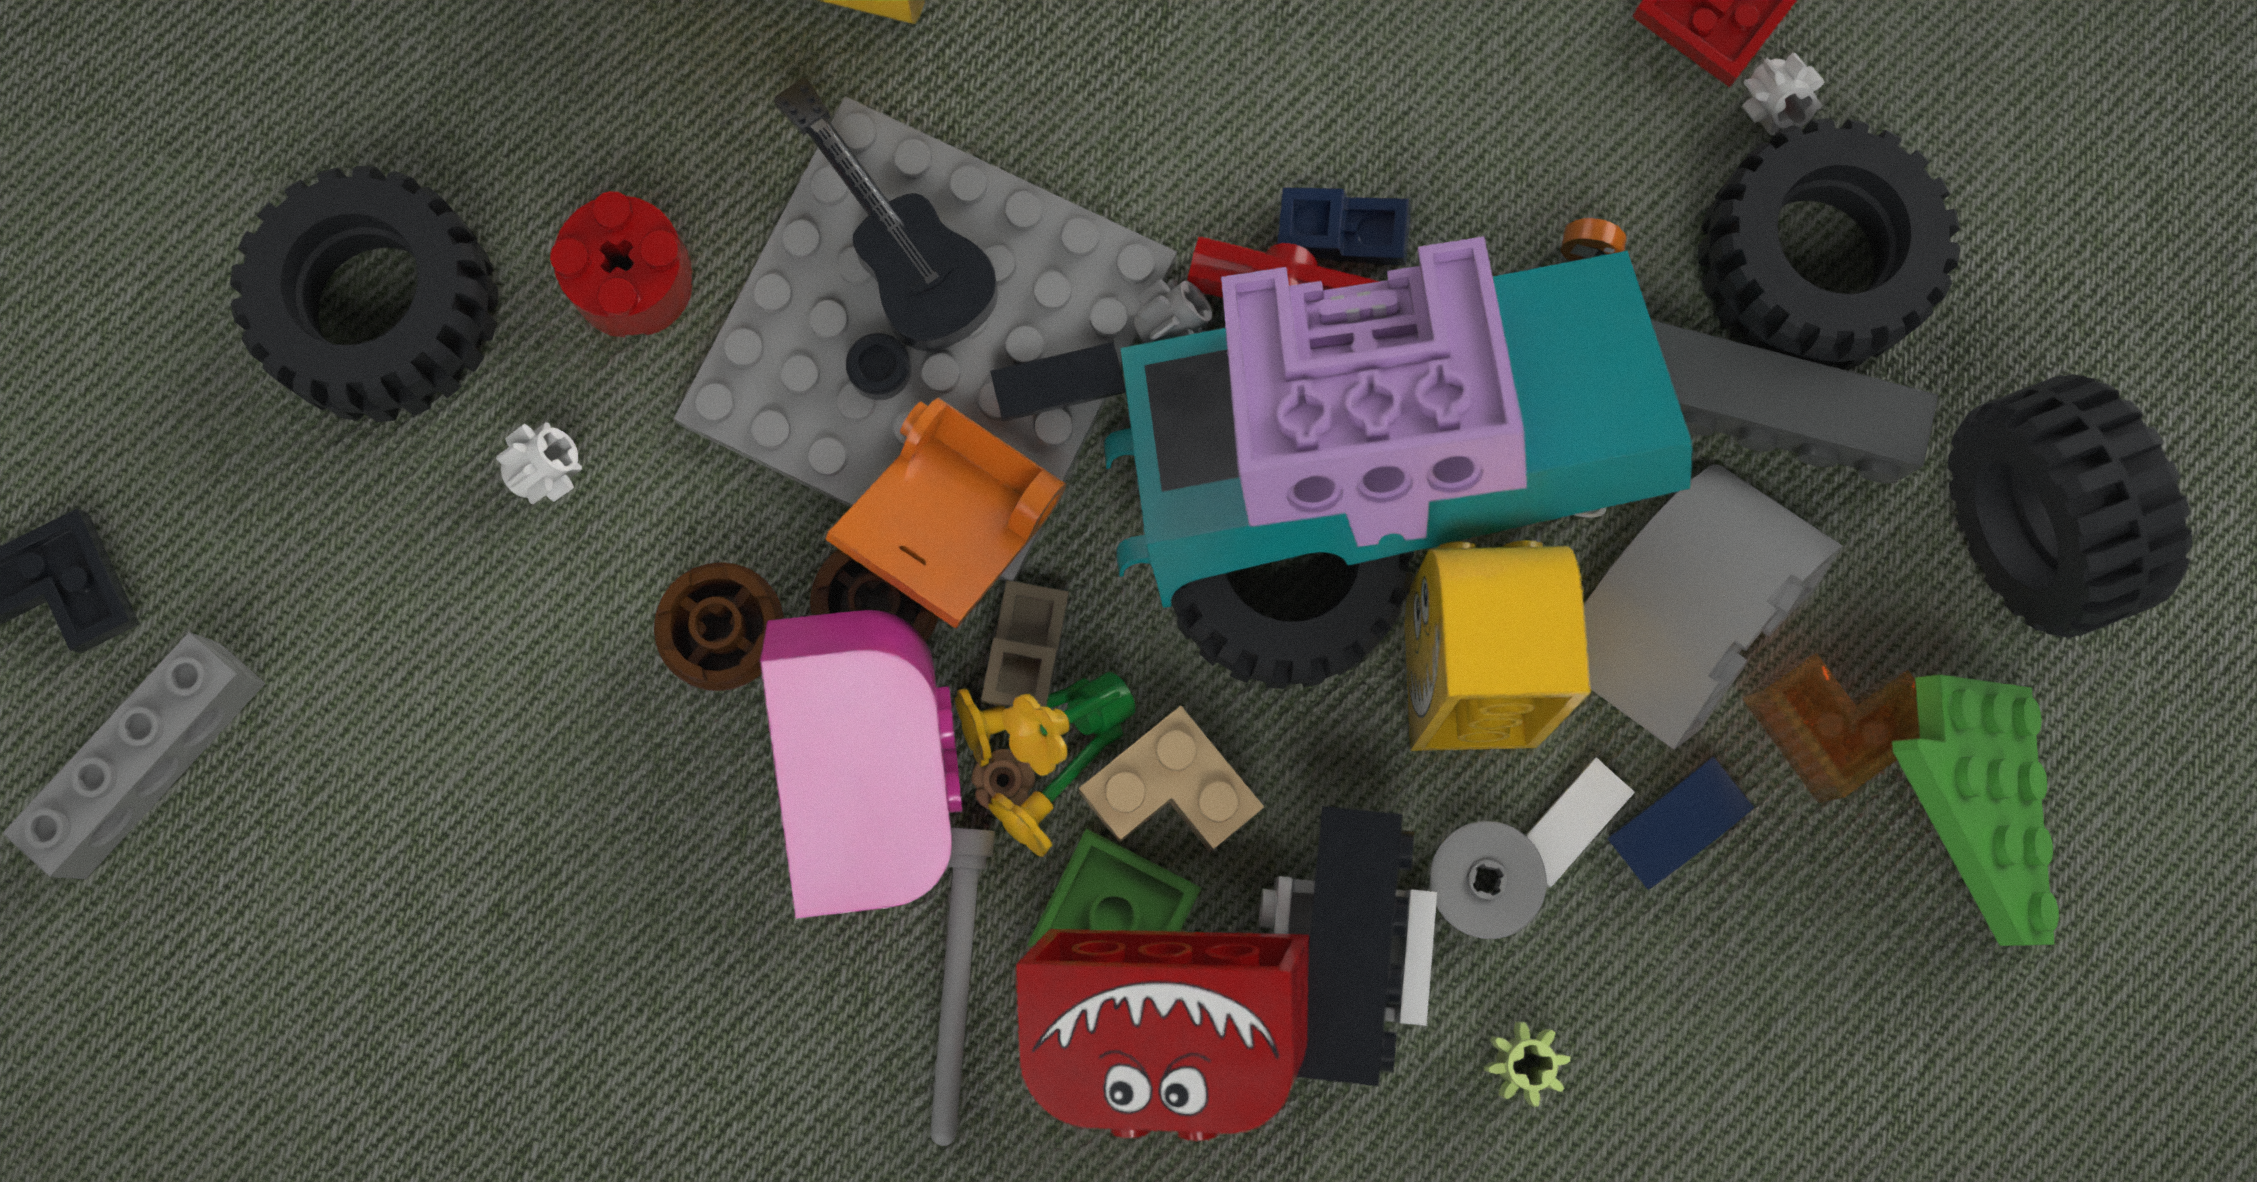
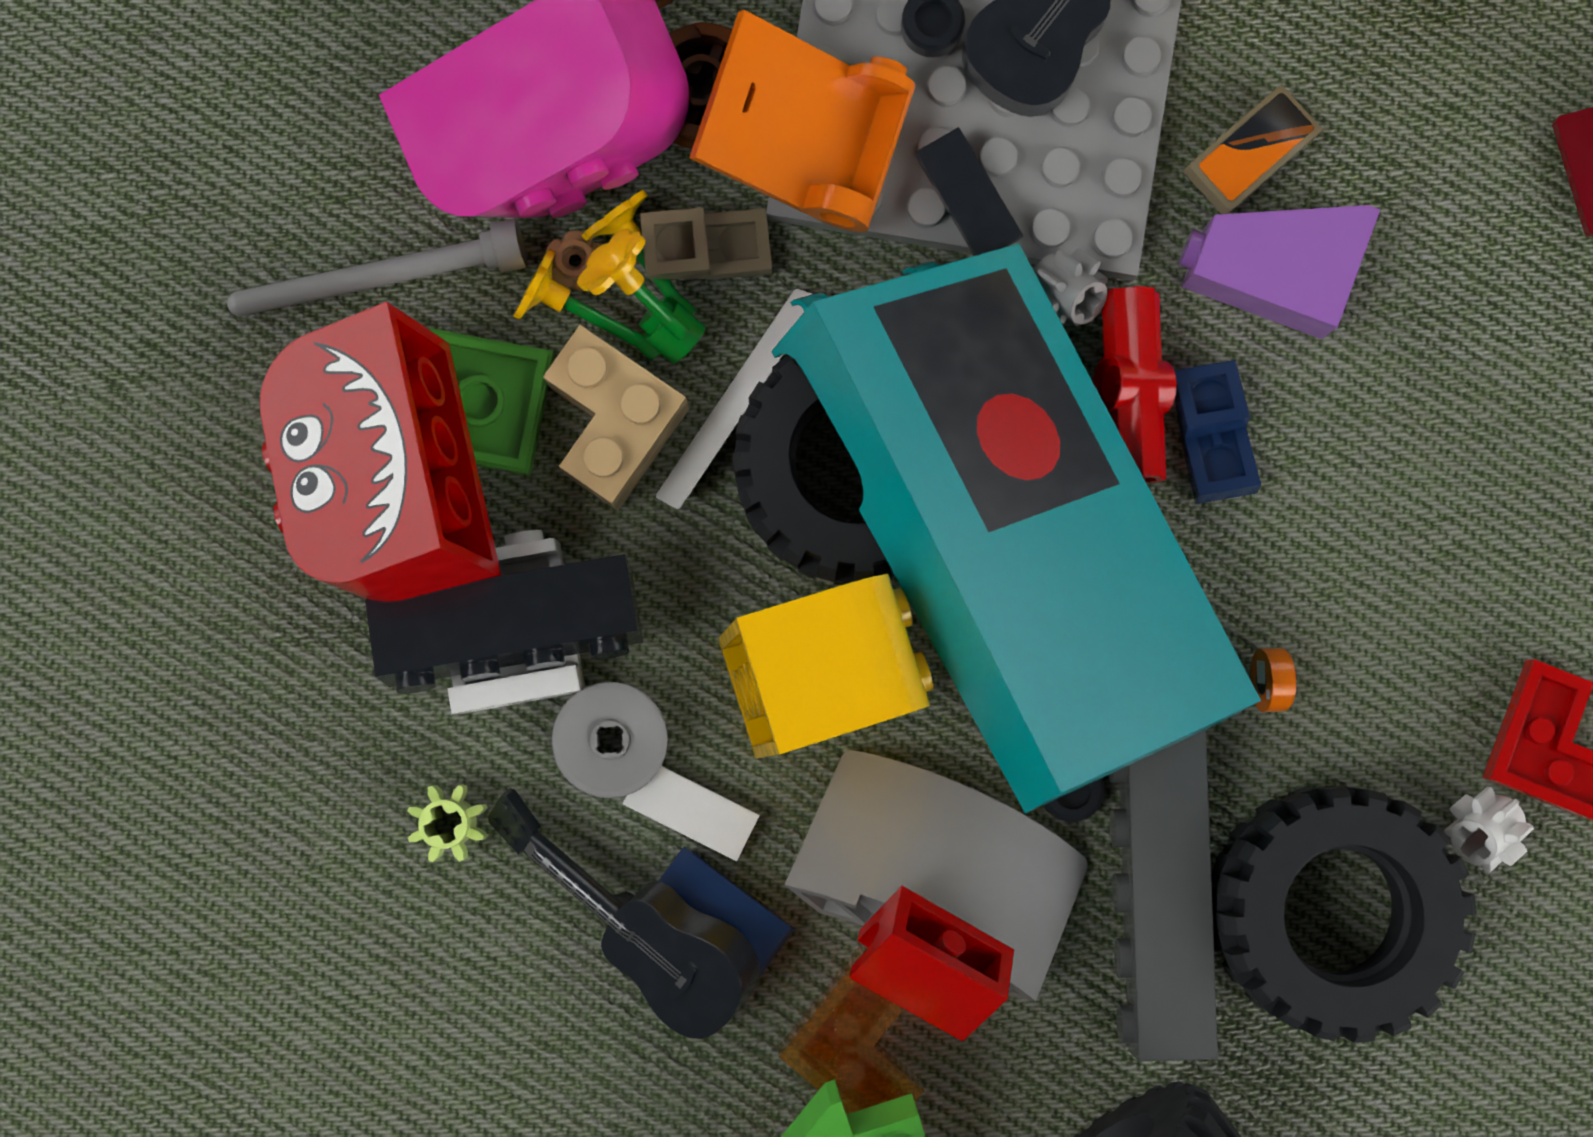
camera: 75 degrees right, 5 degrees up
(1088, 112) = (1252, 150): none -> slope
(1186, 663) = (728, 409): none -> white sticker
(1207, 116) = (1282, 263): none -> medium lavender slope
(1372, 393) = (1026, 472): lavender piece -> none
(1722, 869) = (682, 960): none -> black piece
(1798, 622) = (933, 964): none -> red brick

